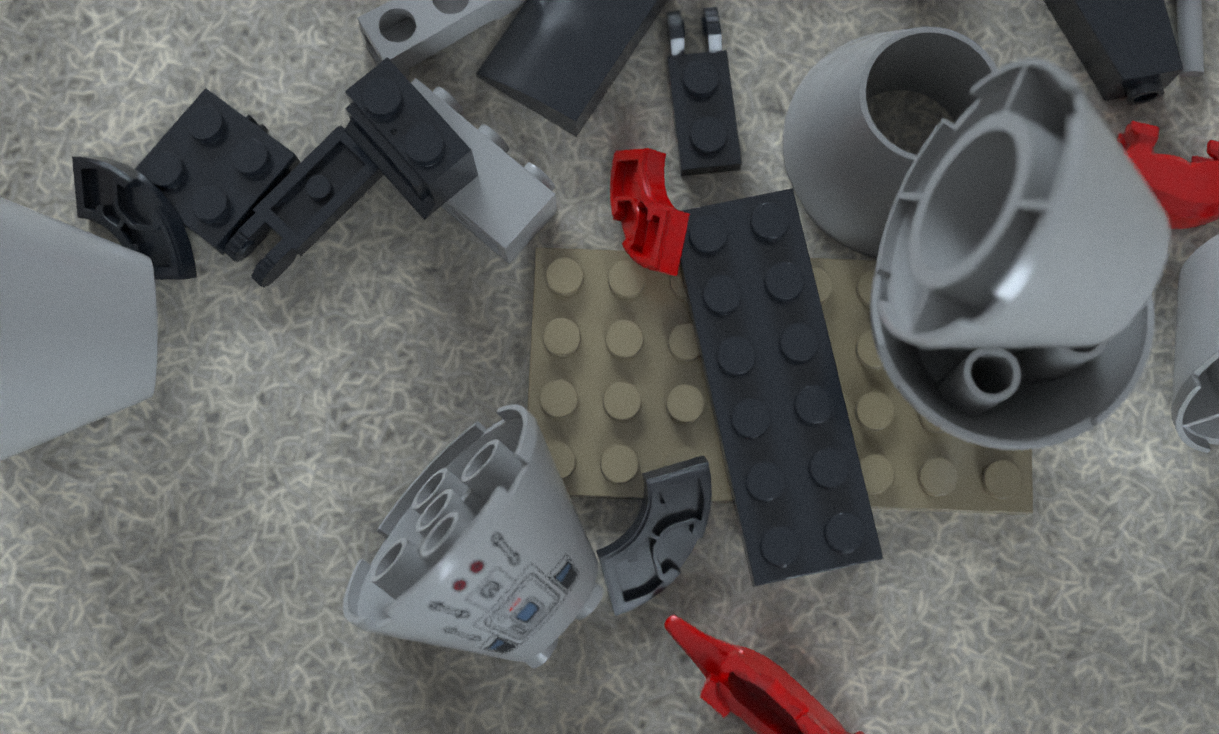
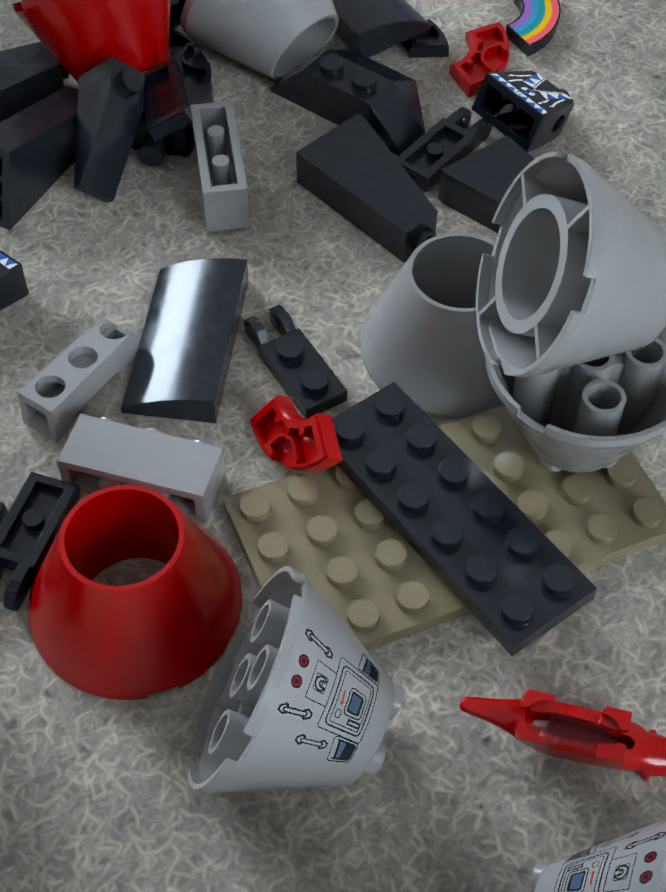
camera: 25 degrees left, 25 degrees down
(408, 139) = (95, 440): black window -> none
(429, 389) = (142, 633): none -> red cone
(662, 535) = (422, 649): black tile -> none

